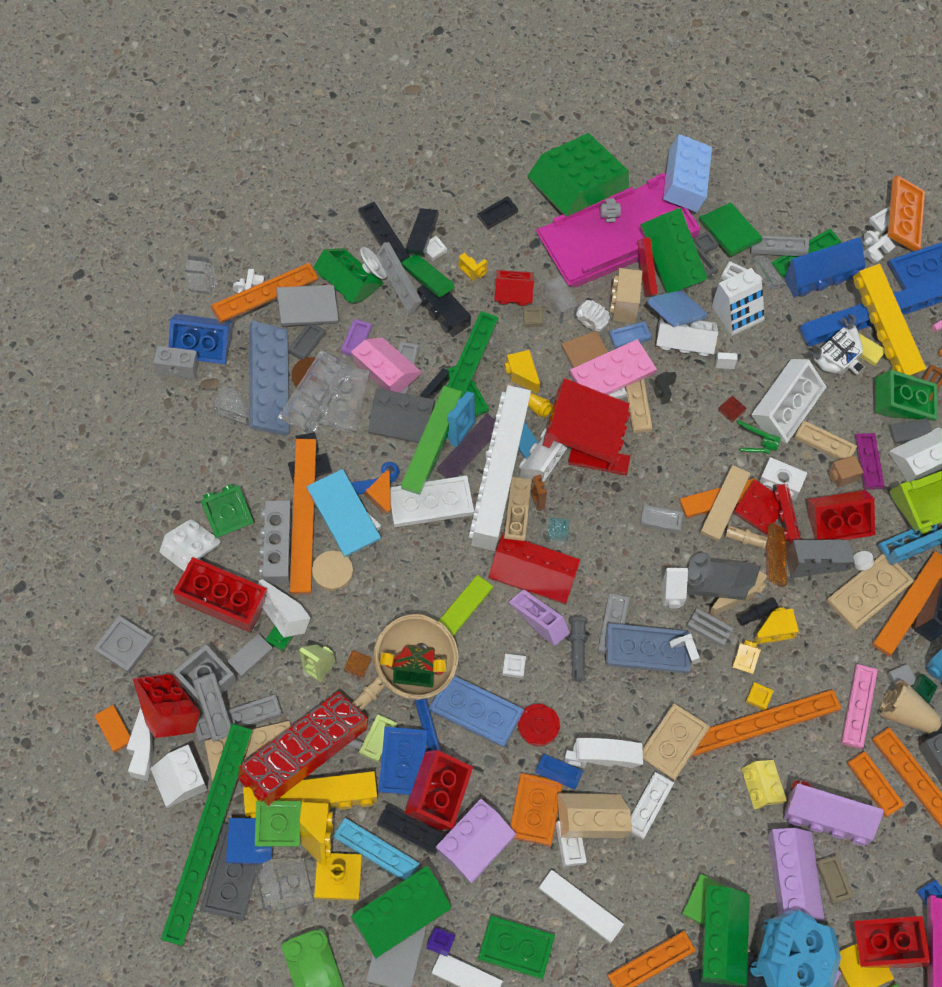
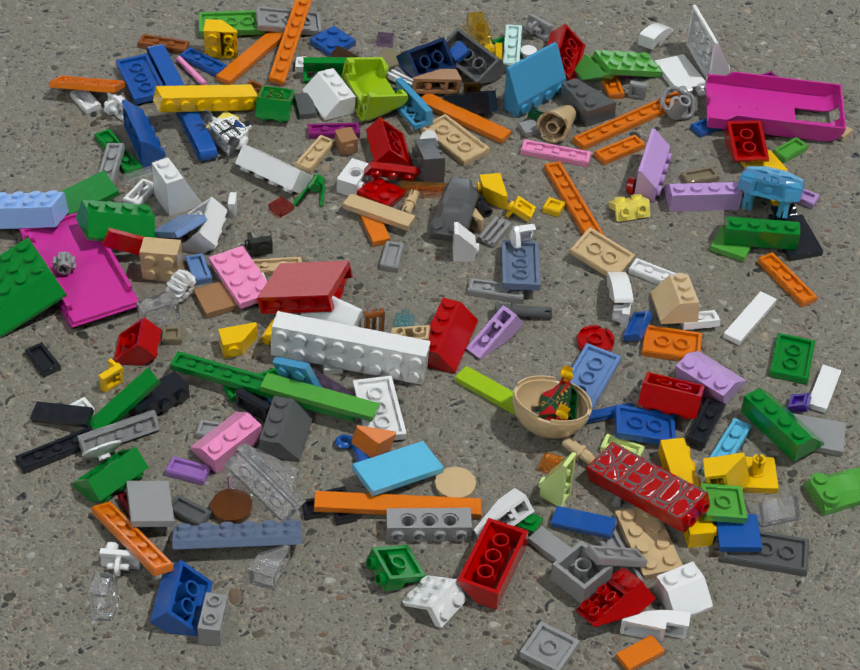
camera: 90 degrees left, 20 degrees down
(206, 836) = (738, 563): green plate -> none
(272, 687) = (584, 522): none -> blue tile
(514, 665) = (541, 355): white tile -> none

